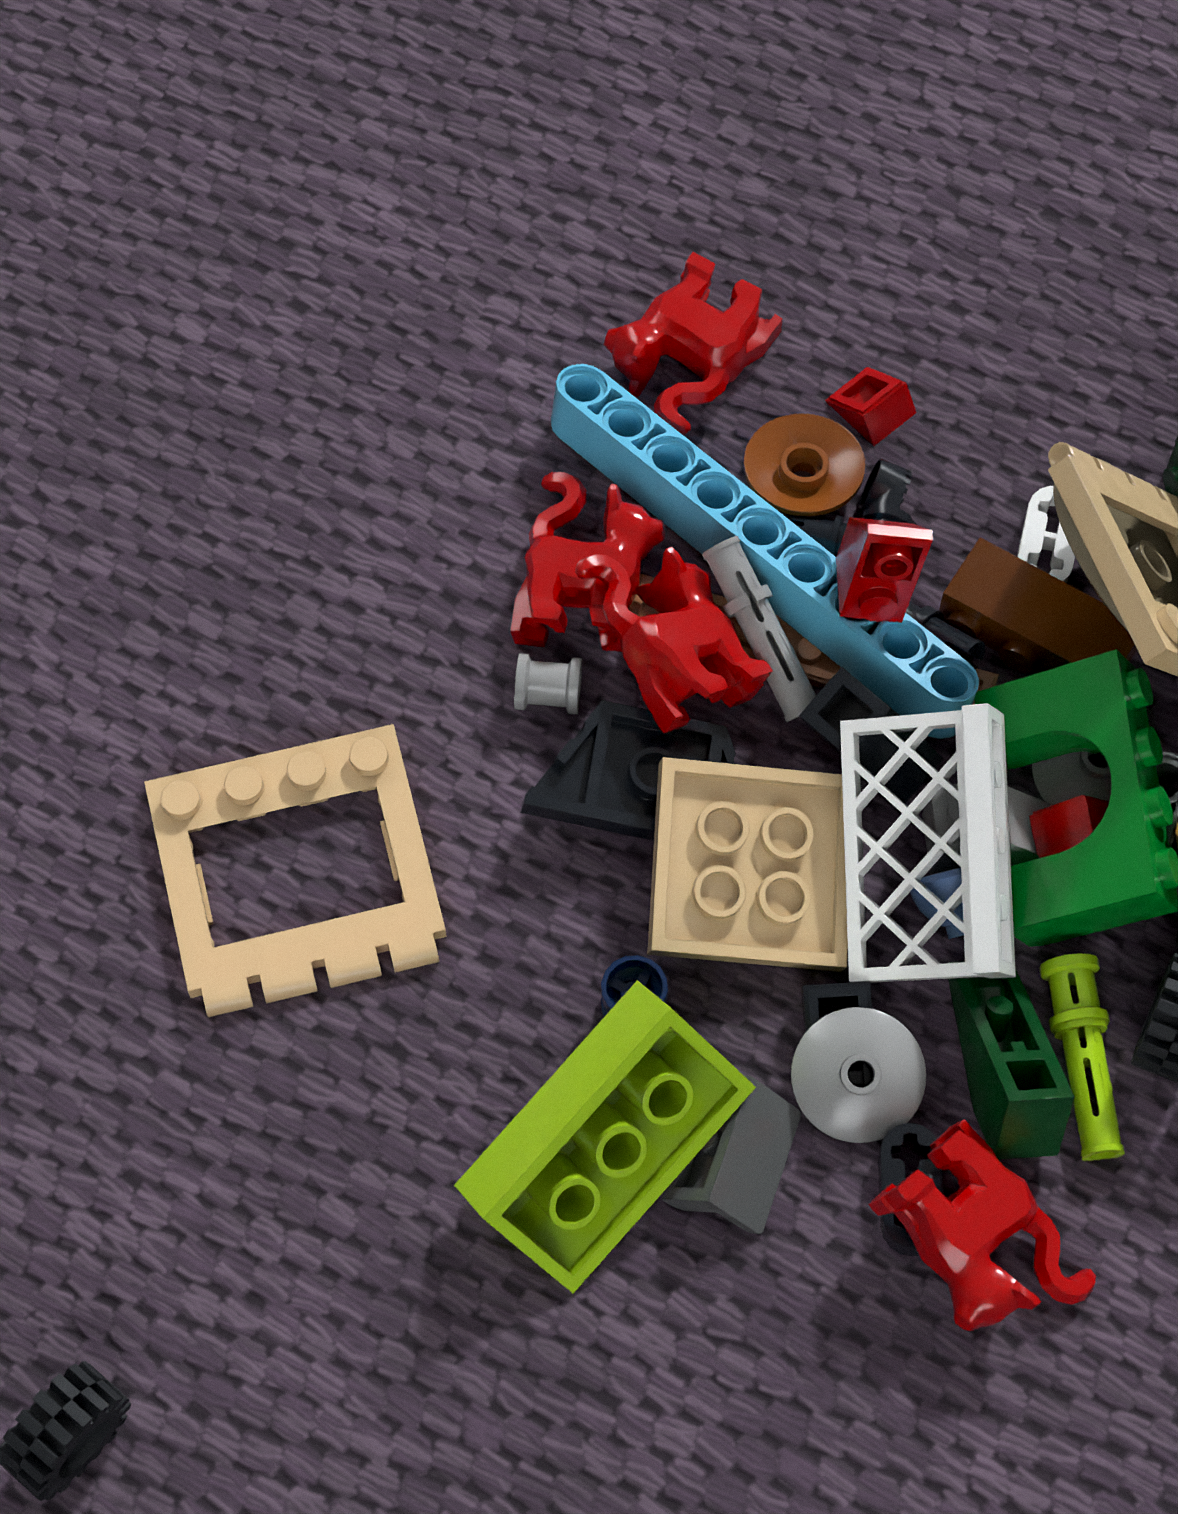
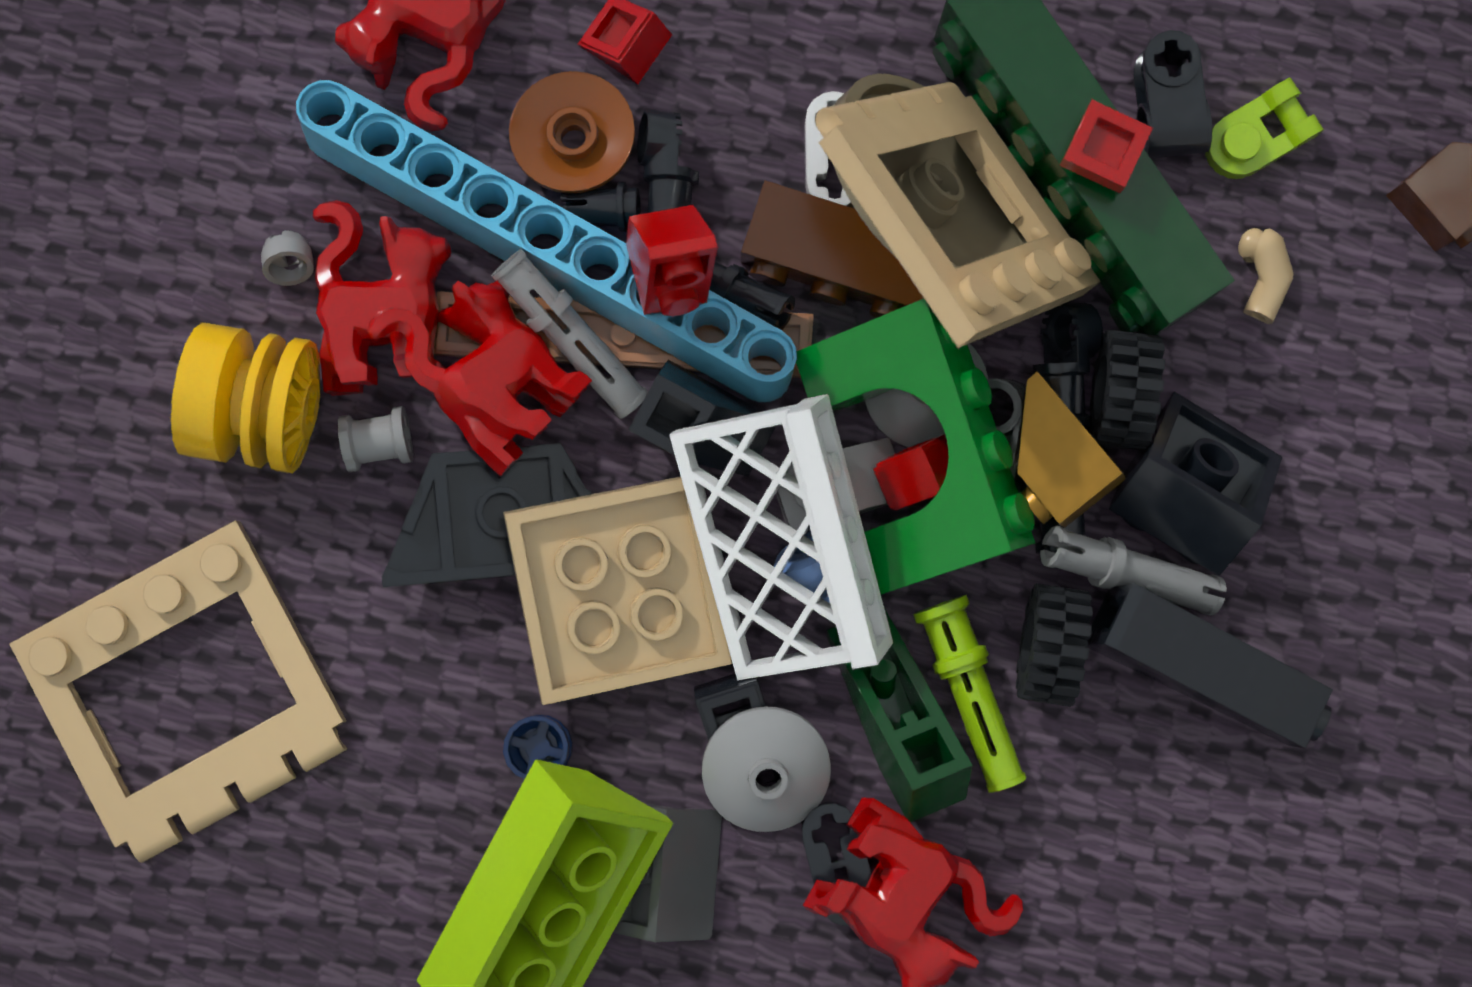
camera: 15 degrees left, 20 degrees up
(439, 608) = (245, 397): none -> yellow wheel
(493, 513) = (274, 258): none -> light grey hinge

